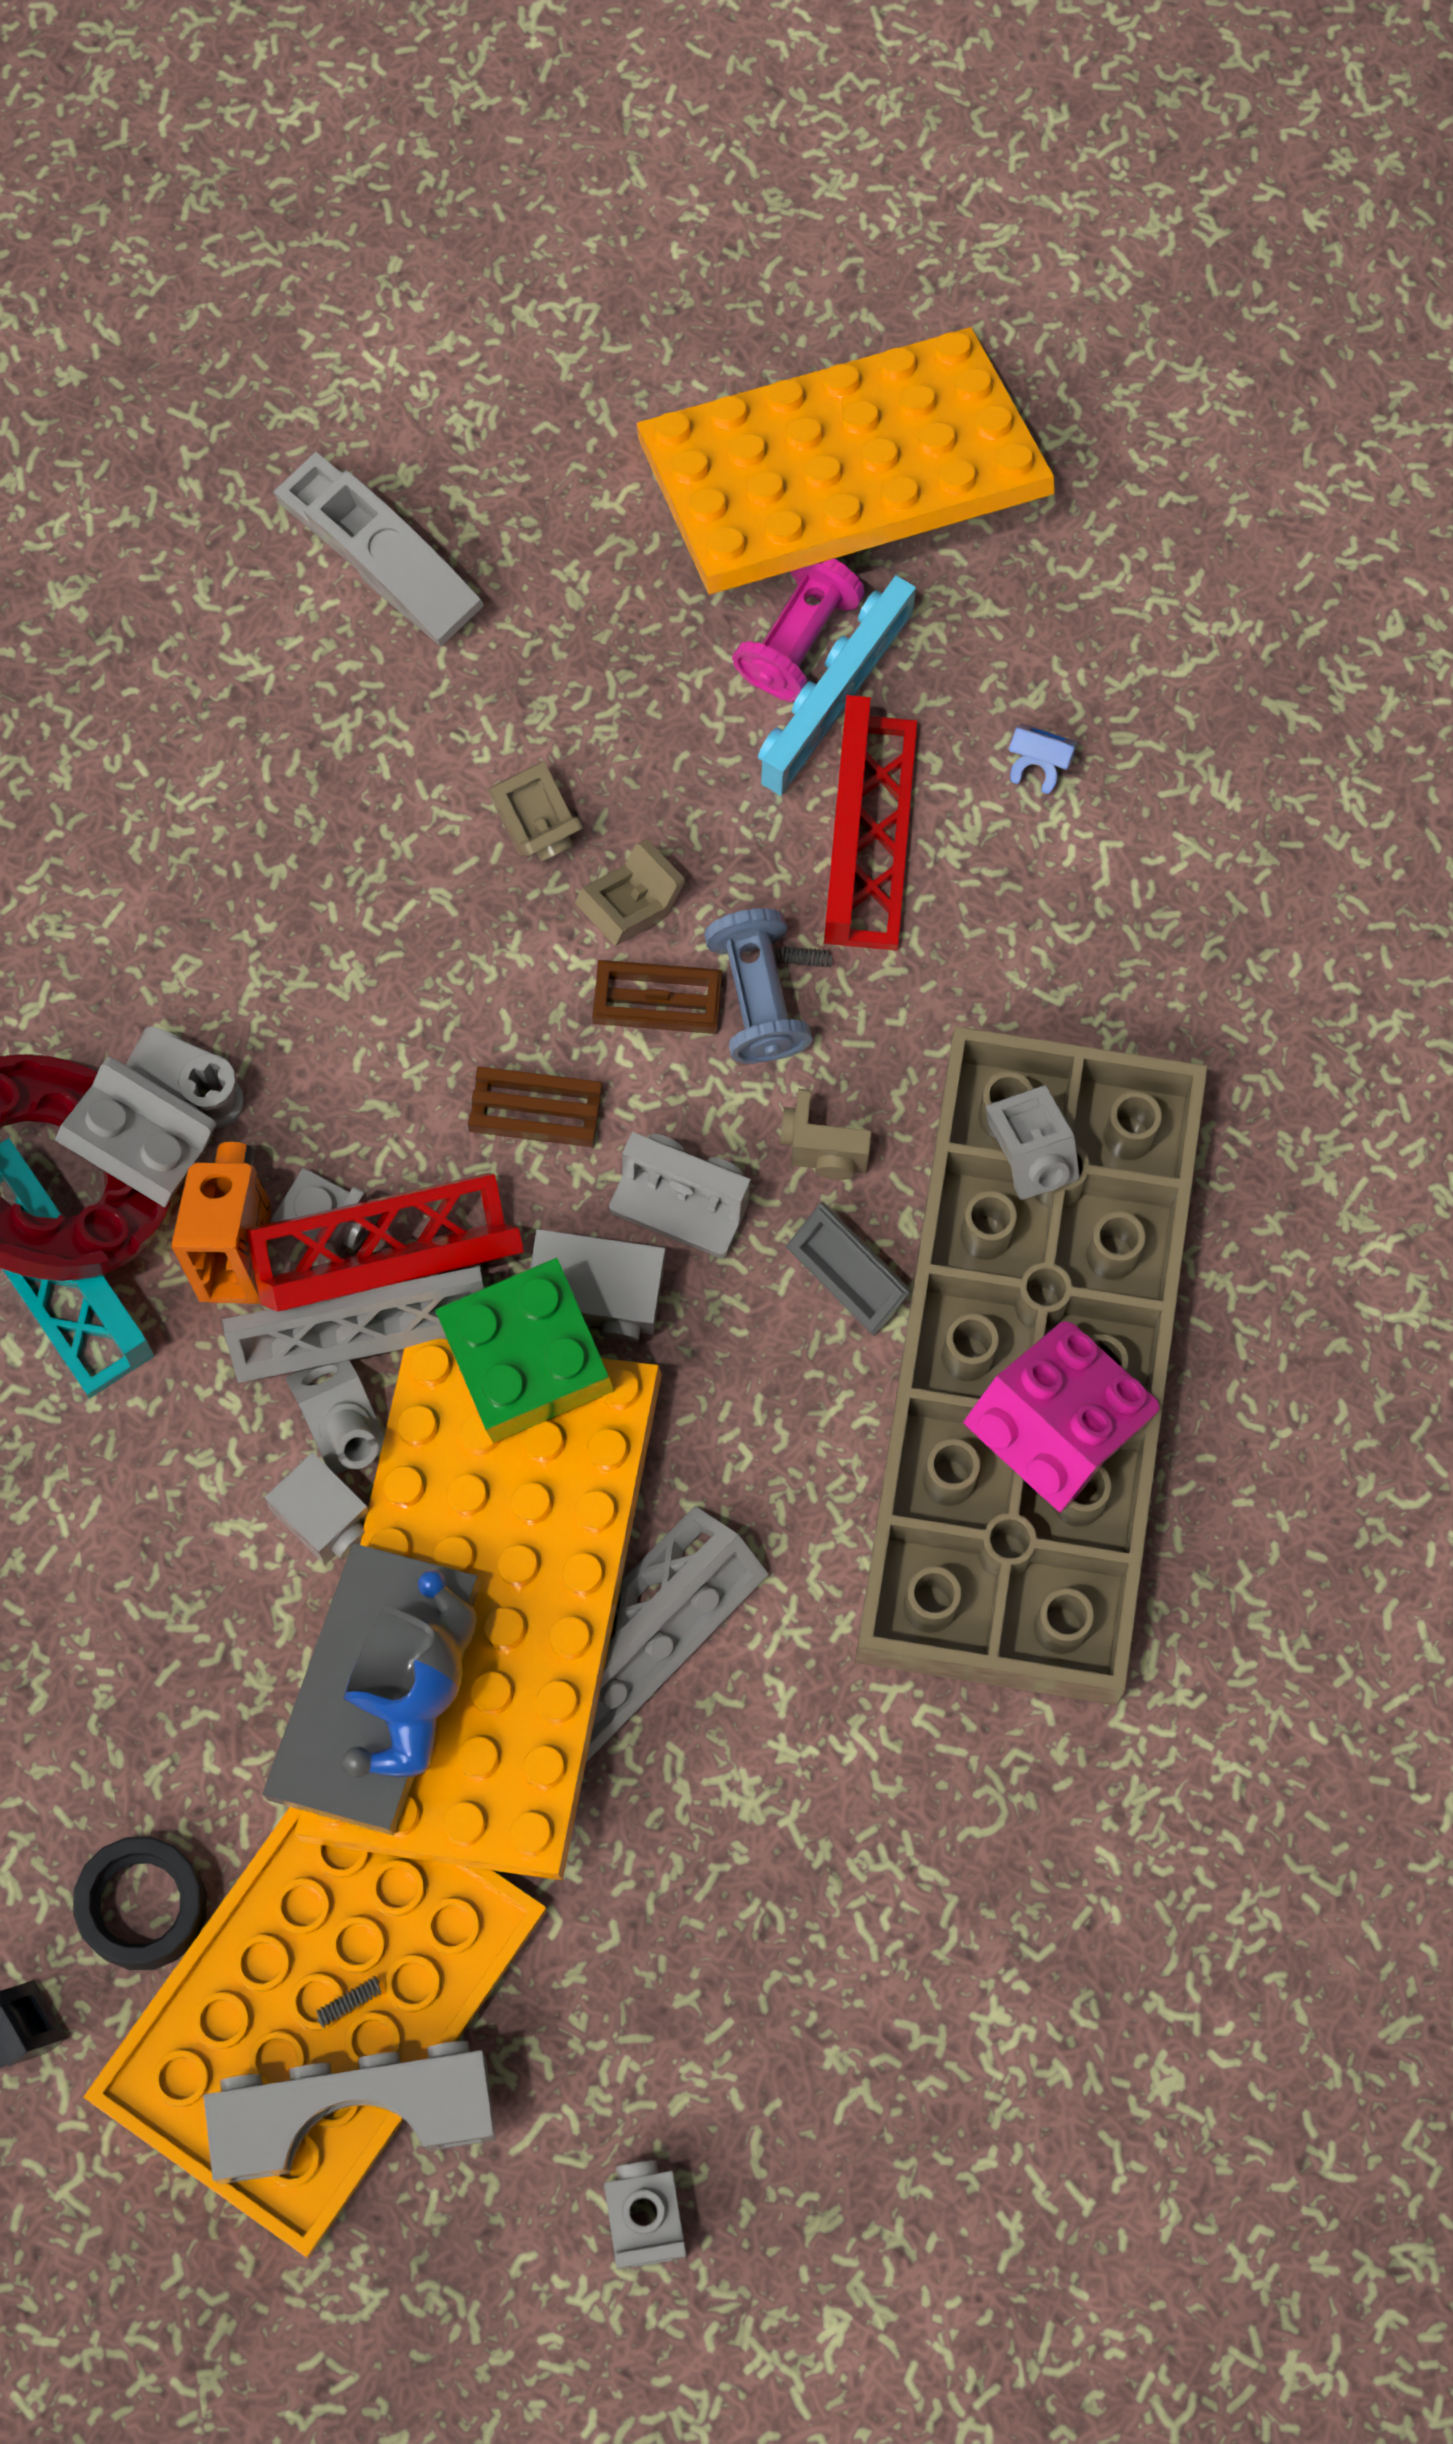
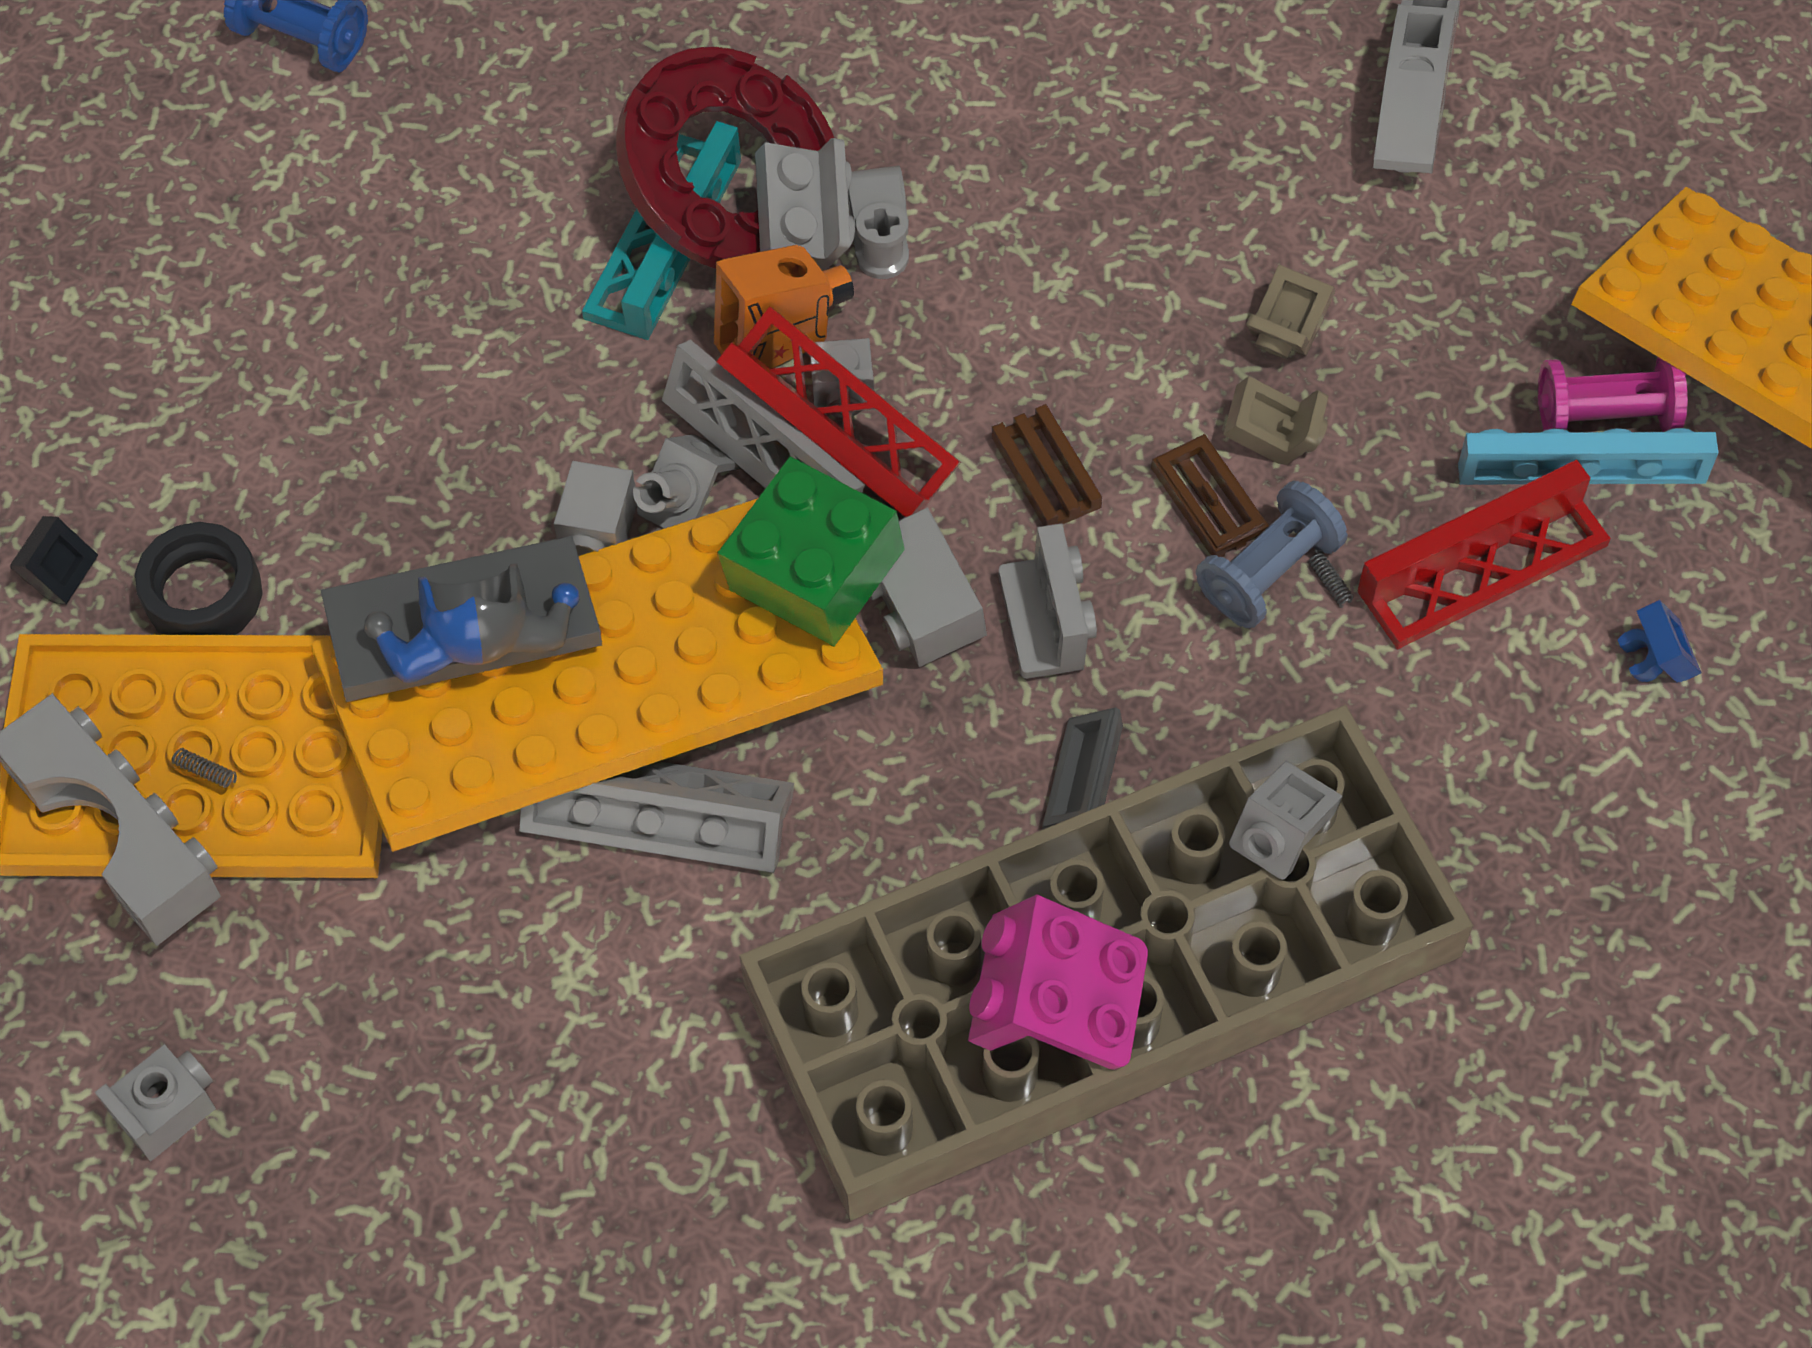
camera: 60 degrees right, 10 degrees down
(829, 1149) = (1172, 692): dark tan bracket -> none

